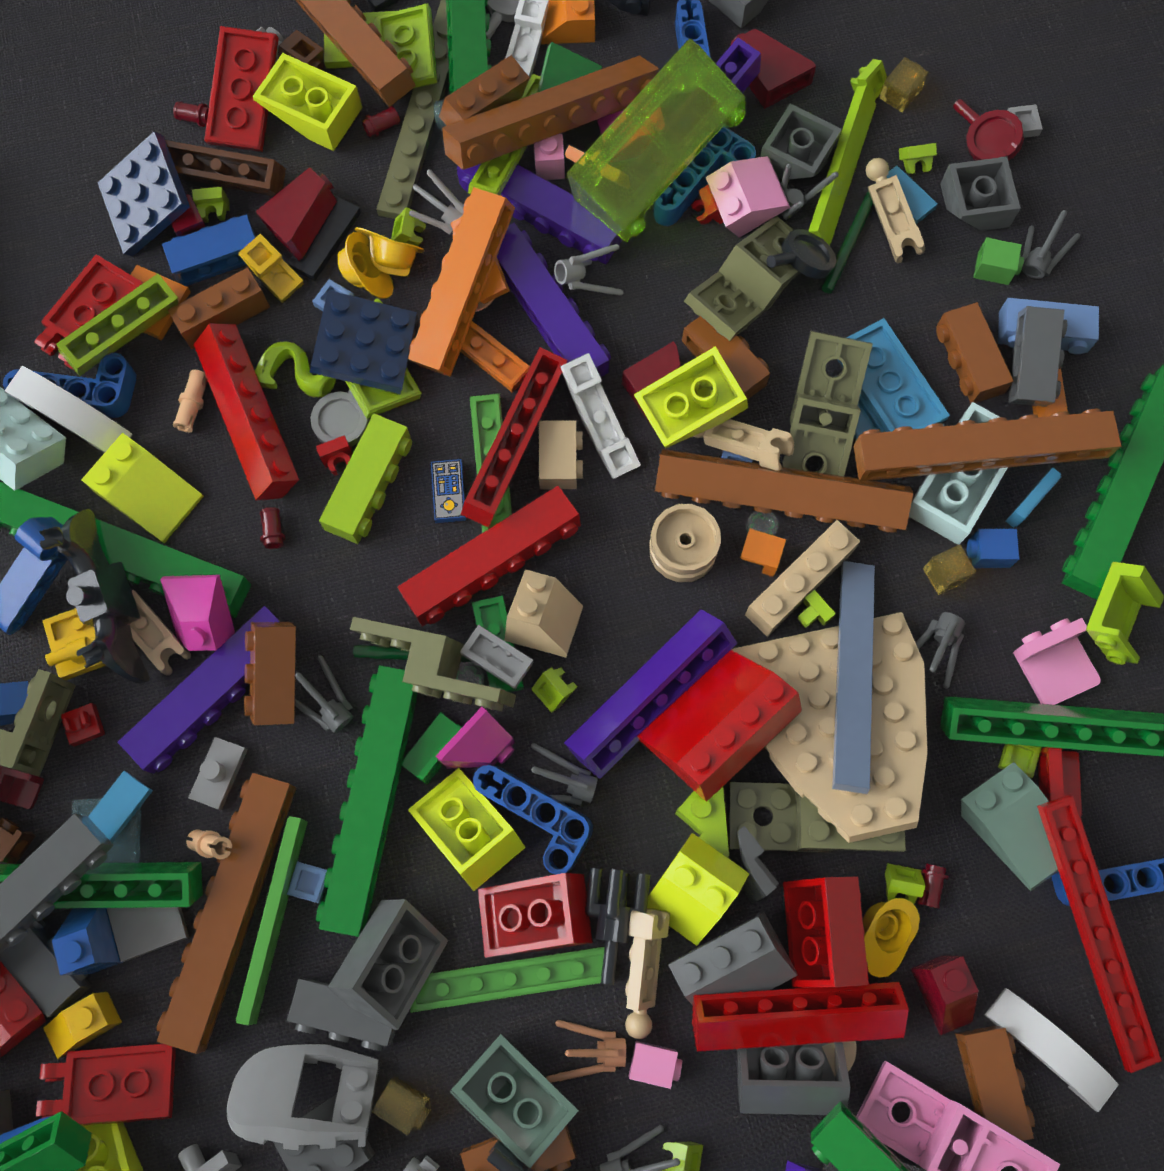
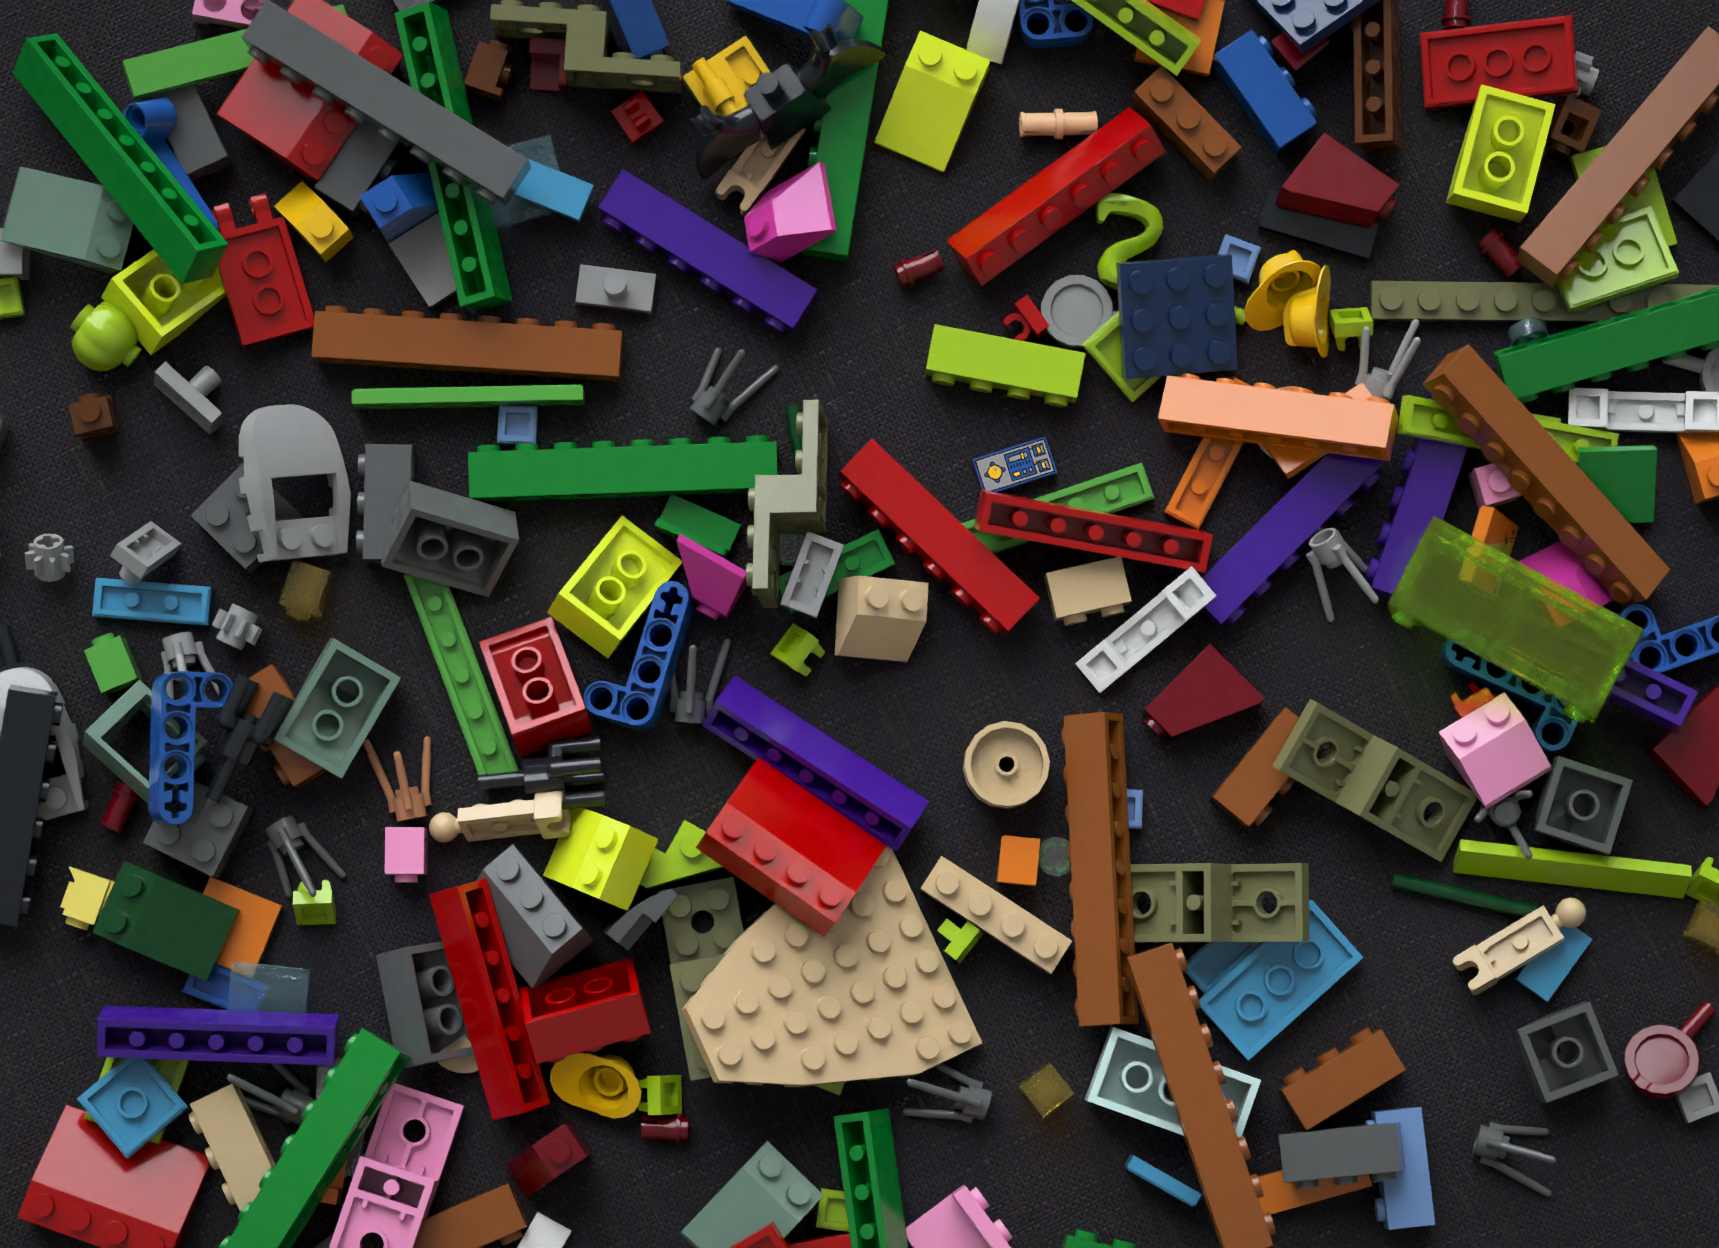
camera: 70 degrees right, 10 degrees up
(209, 844) = (532, 305): light nougat pin -> none
(211, 200) = (1332, 68): lime tile -> none
(270, 673) = (738, 320): dark orange brick -> none
(271, 268) = (1254, 172): yellow slope -> none
(488, 91) = (1543, 383): dark orange brick -> none
(692, 398) = (1184, 735): neon yellow slope -> none
(750, 442) = (1152, 807): tan plate -> none
(806, 254) = (1423, 842): black piece -> none
(854, 679) = (883, 990): sand blue tile -> none
(920, 153) = (1615, 962): lime tile -> none
(993, 548) = (1085, 1139): blue brick -> none
(998, 261) = (1479, 1093): bright green brick -> none

